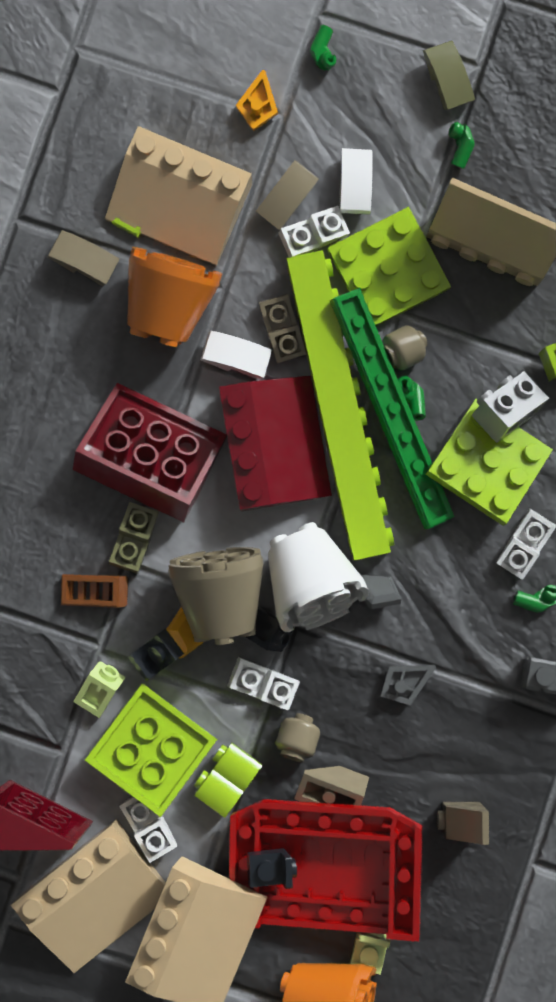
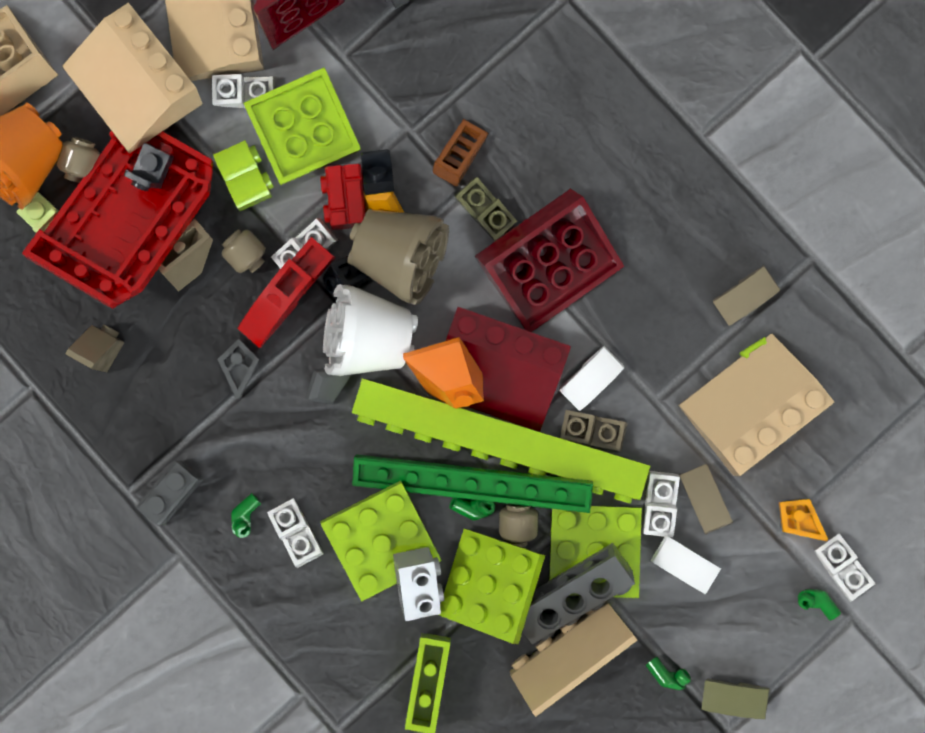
camera: 115 degrees right, 0 degrees up
(99, 689) = (376, 112): yellowish green bracket -> none
(167, 295) = (674, 346): orange cone -> none
(194, 672) = (345, 196): none -> red brick
(279, 42) = (844, 567): none -> white slope
(298, 944) = (77, 158): none -> dark tan head
(306, 482) = (448, 372): none -> orange slope
(314, 676) = (284, 292): none -> red slope
(449, 278) = (579, 579): none -> dark grey brick
(473, 339) = (491, 586): none -> lime plate

